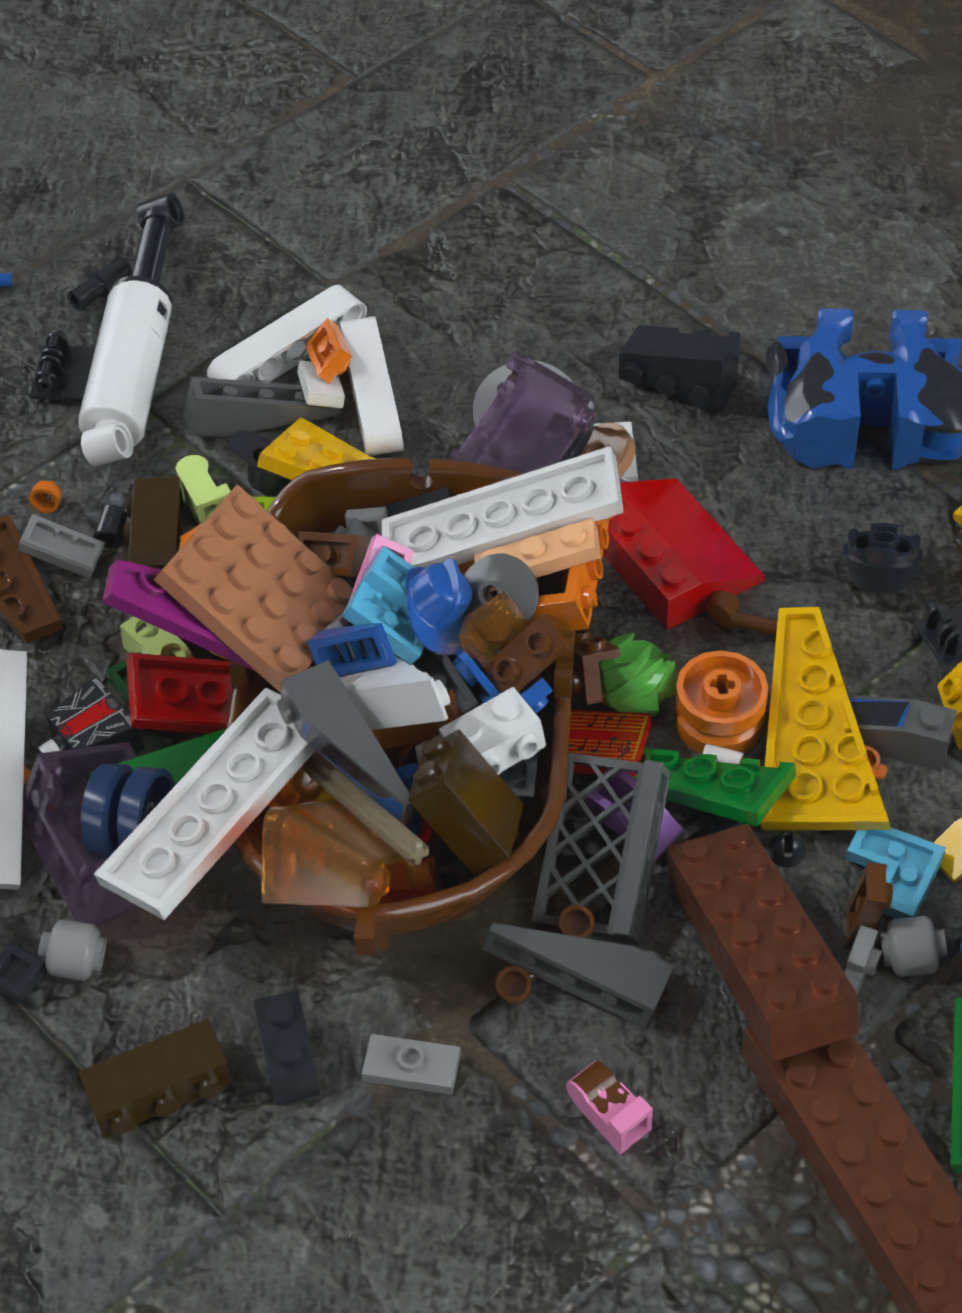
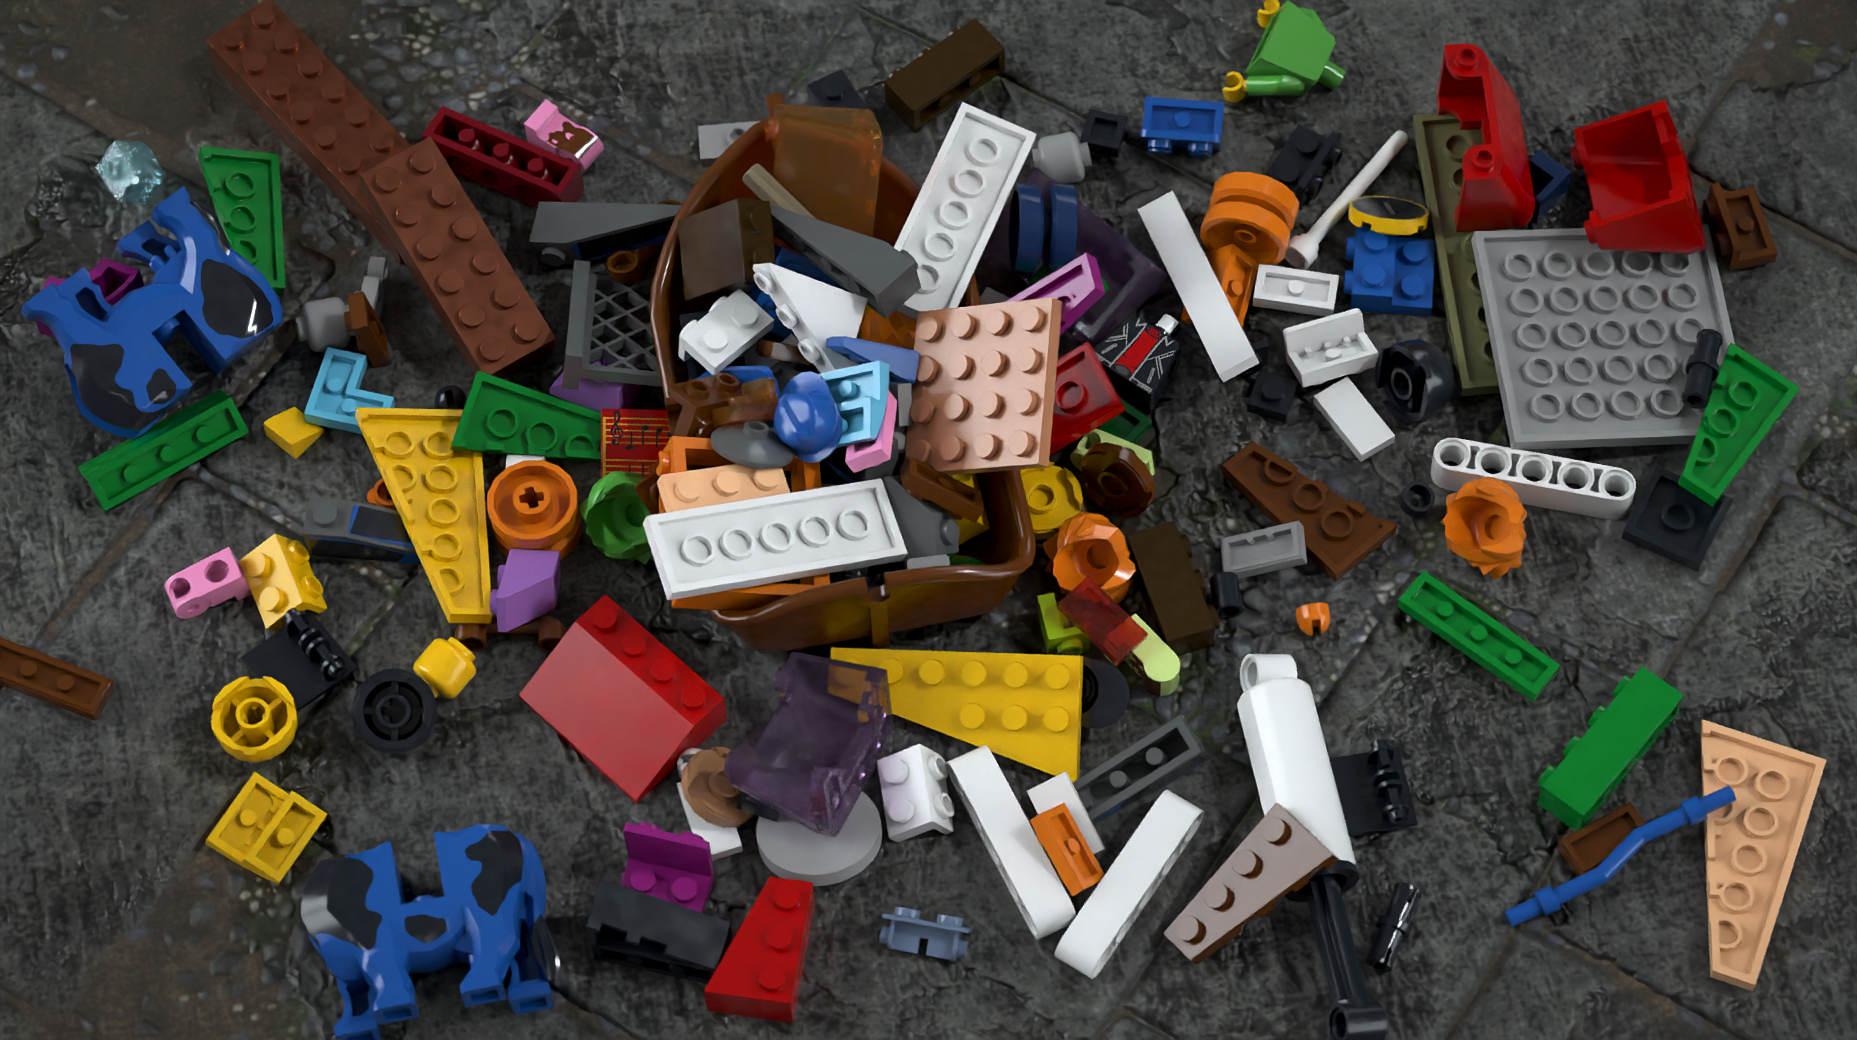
camera: 165 degrees right, 10 degrees up
(191, 296) = (1262, 869): none -> wing
(219, 482) = (1102, 620): none -> clear red plate
(436, 428) = (915, 793): none -> white bracket
(460, 344) = (942, 935): none -> sand blue hinge
(595, 336) = (767, 955): none -> red wedge
(661, 407) = (668, 865): none -> magenta bracket
(686, 1075) = (504, 160): none -> dark red brick
(745, 628) = (526, 587): none -> medium lavender slope
(832, 591) = (446, 667): none -> yellow head

